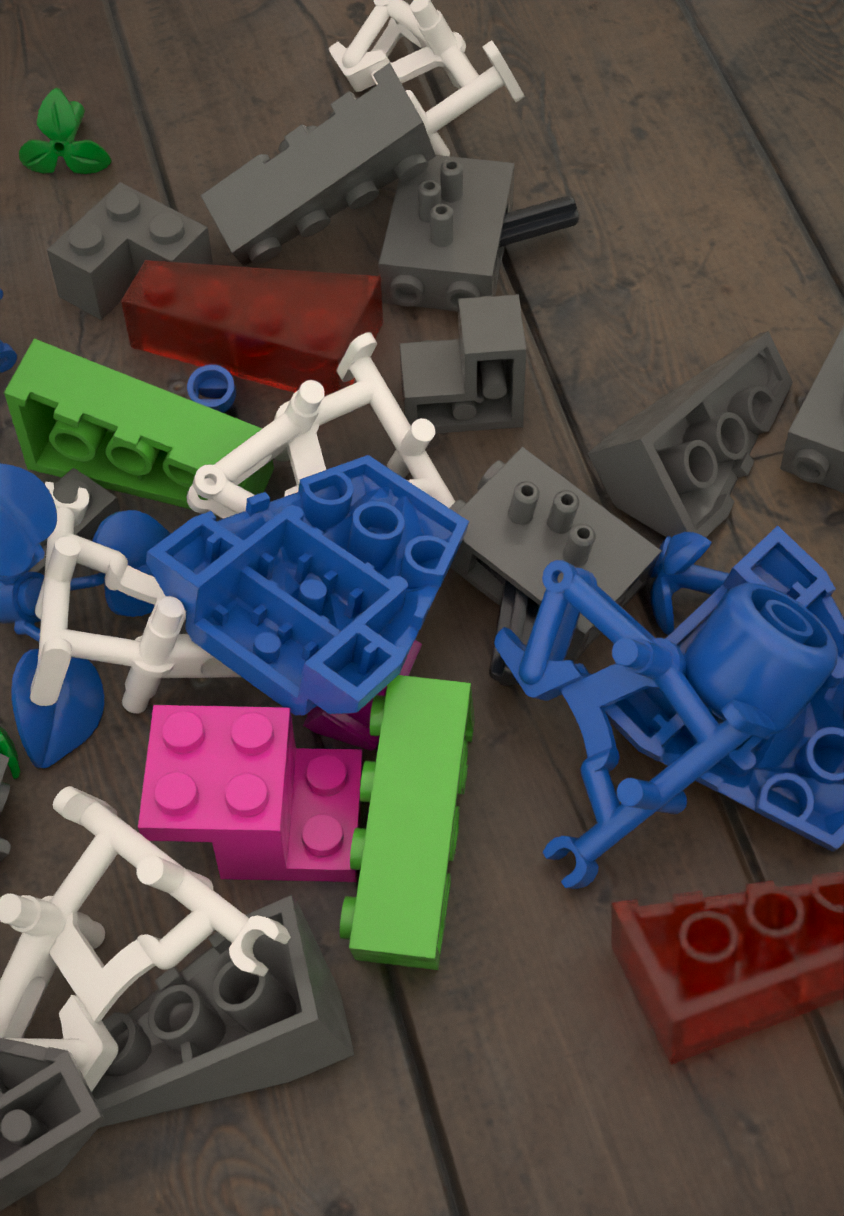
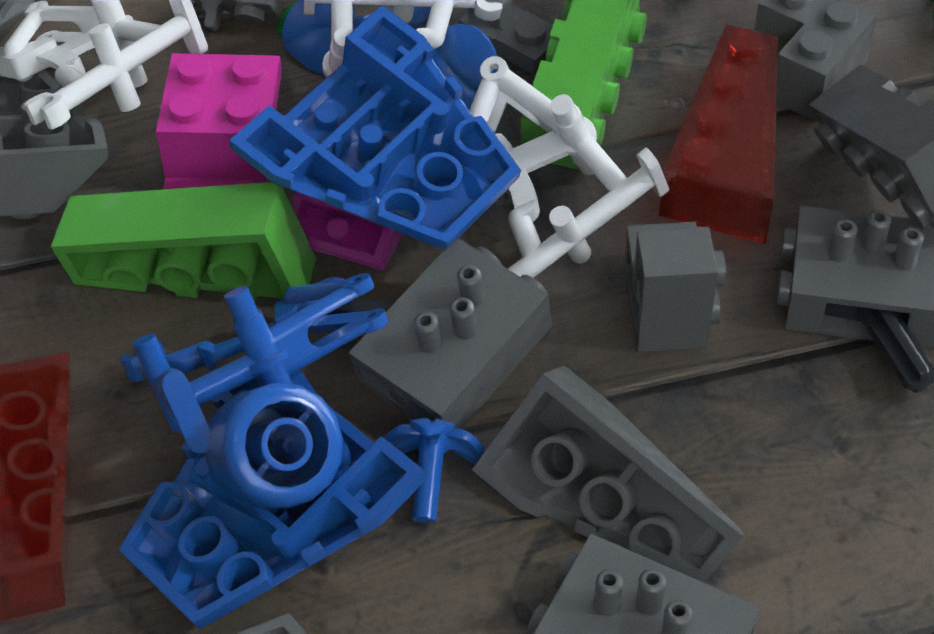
camera: 90 degrees right, 5 degrees down
(212, 382) = (653, 100): blue hinge -> none

